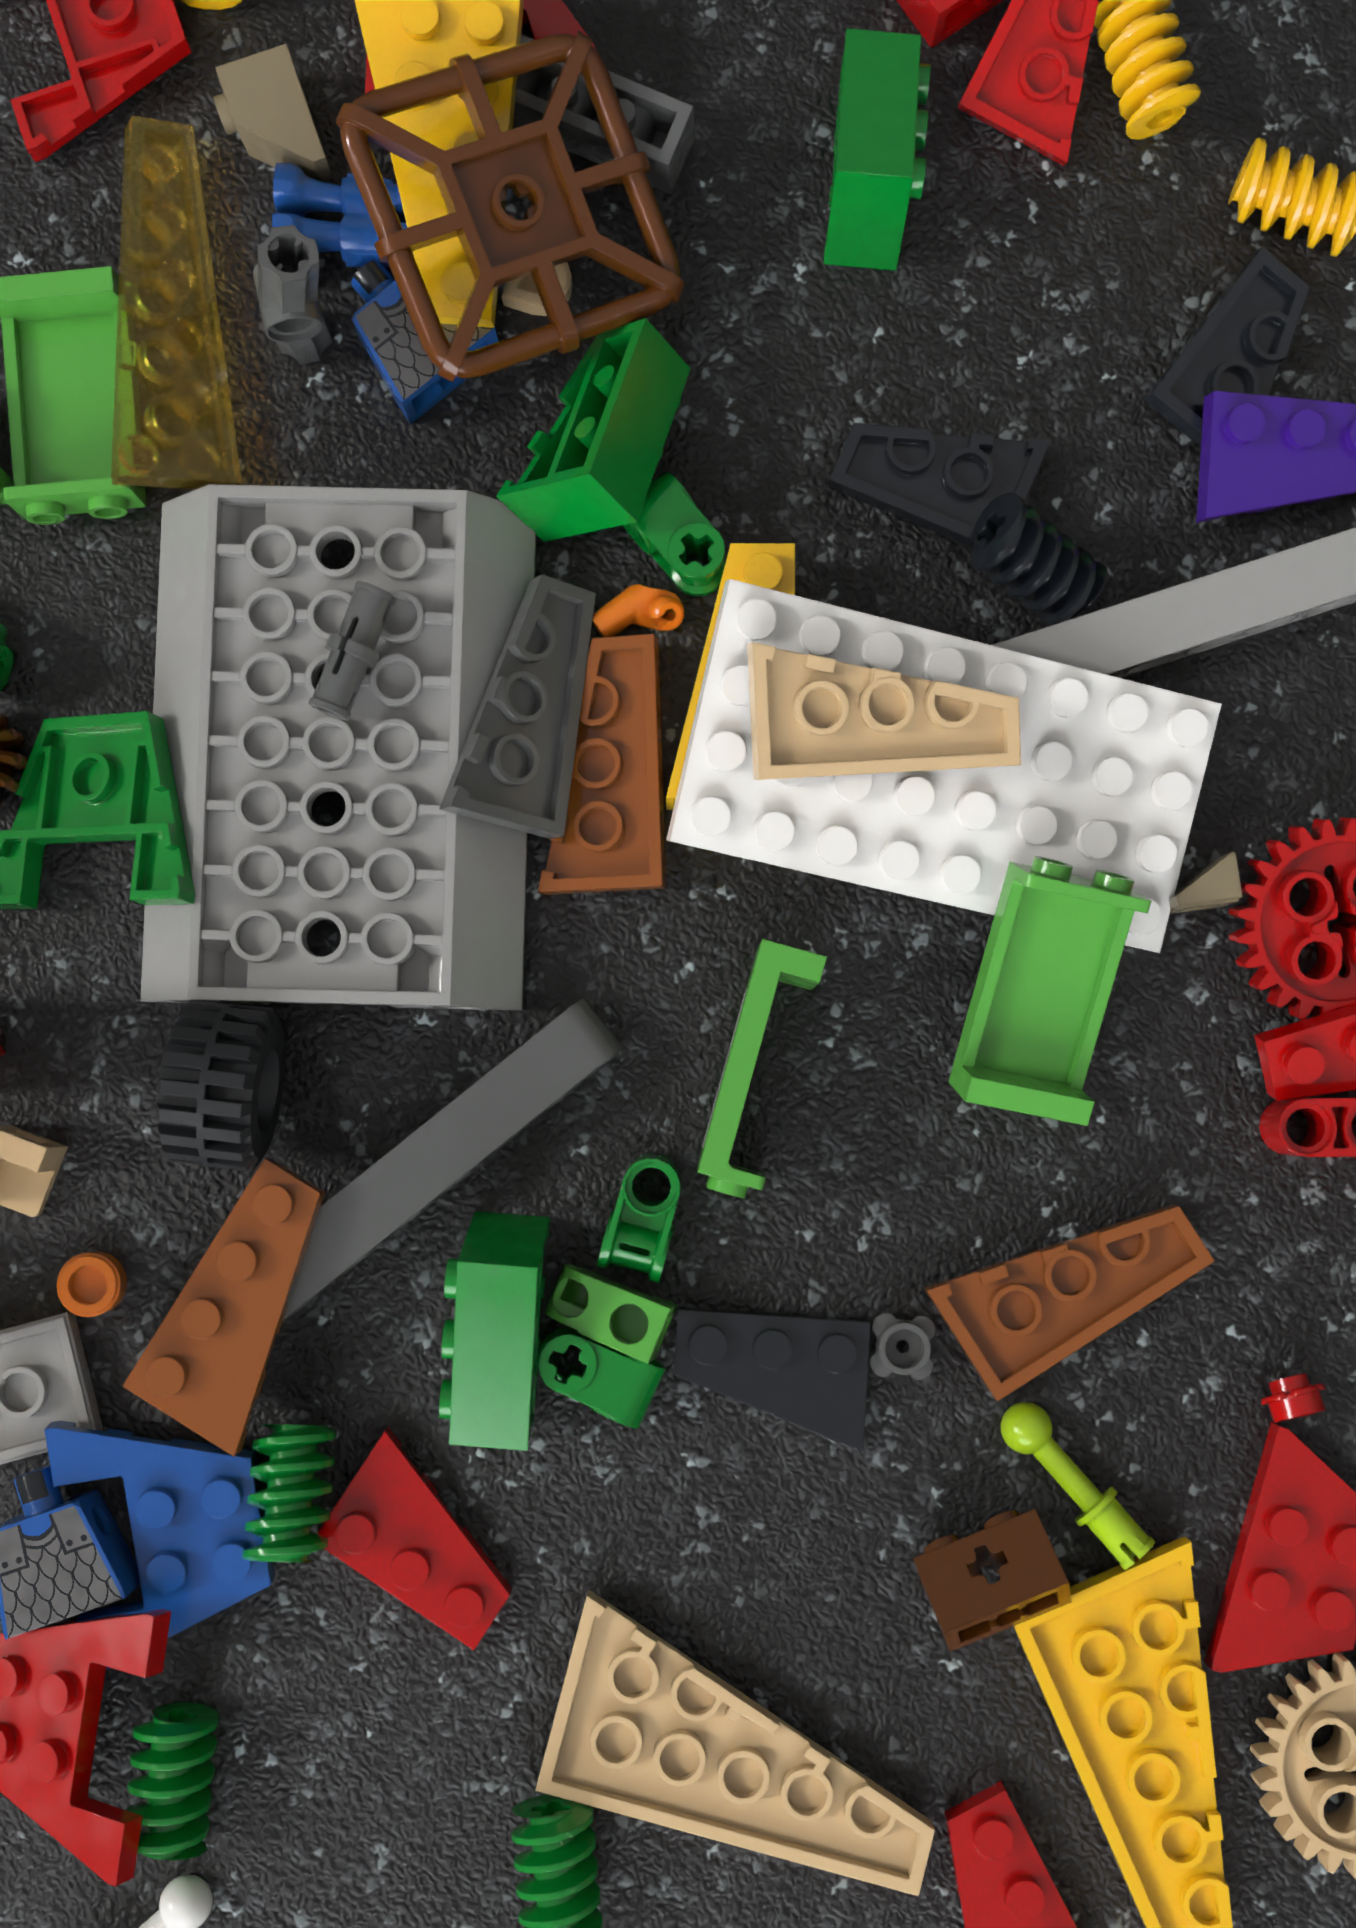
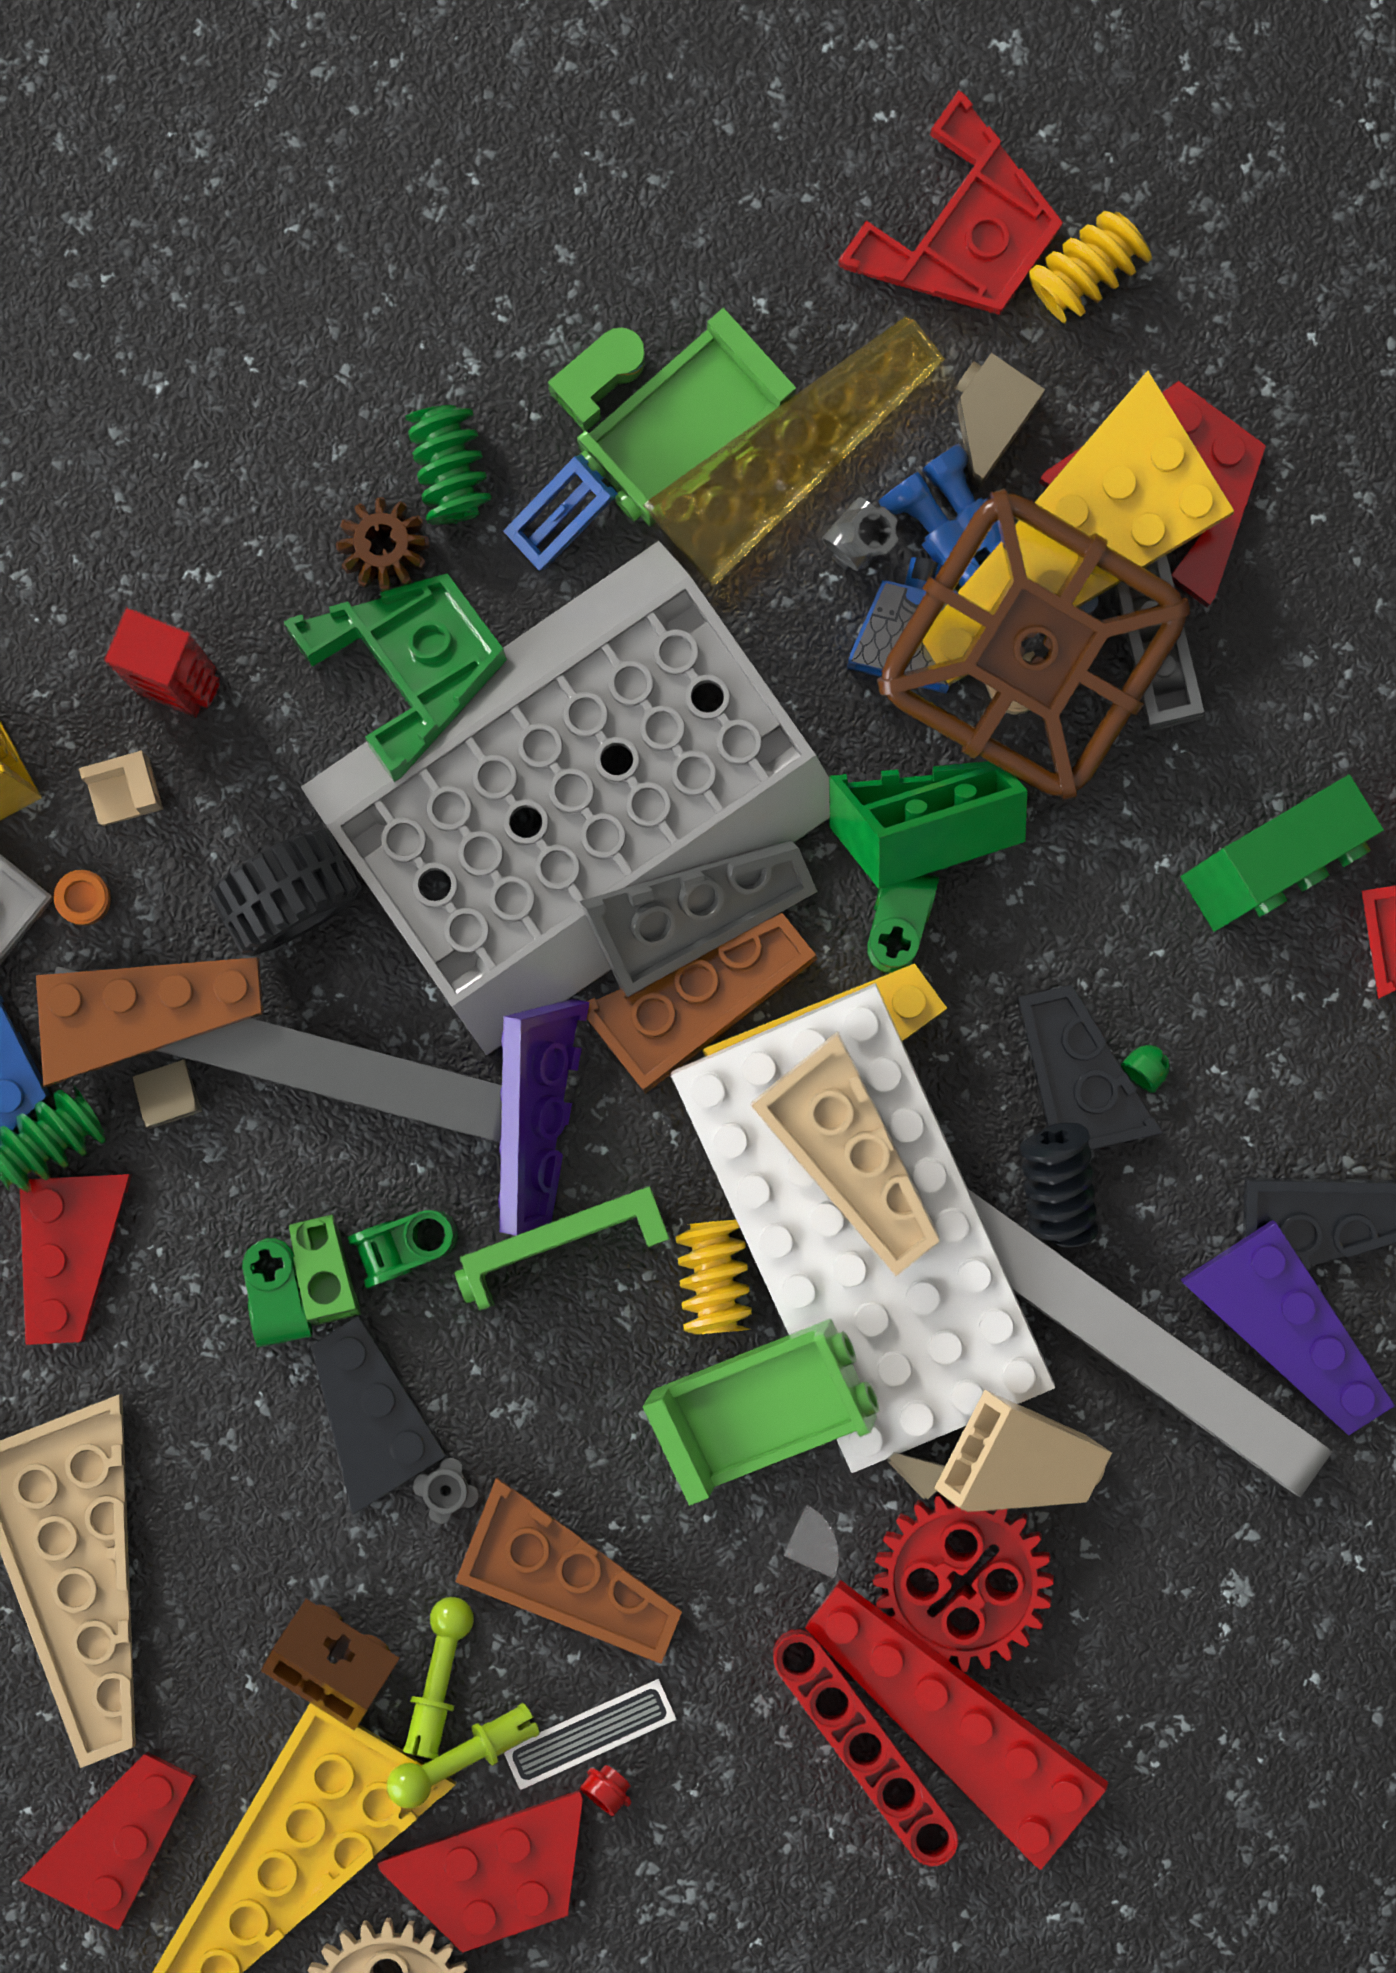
camera: 50 degrees right, 0 degrees up
(41, 576) = (591, 482): none -> tile
(336, 1340) = (166, 1094): none -> dark tan slope
(352, 650) = (644, 763): dark grey pin -> none
(494, 1331) = (253, 1199): wedge -> none
(606, 1001) = (533, 1088): none -> dark purple wing
(639, 606) = (832, 928): orange arm -> none
(886, 947) = (713, 1277): none -> yellow piece
(978, 412) = (1147, 1067): none -> green hinge
(1163, 1585) = (411, 1783): none -> lime pin
(1197, 1036) = (814, 1543): none -> clear tile
(1225, 1376) = (590, 1734): none -> sticker
(1268, 786) = (1019, 1460): none -> tan slope

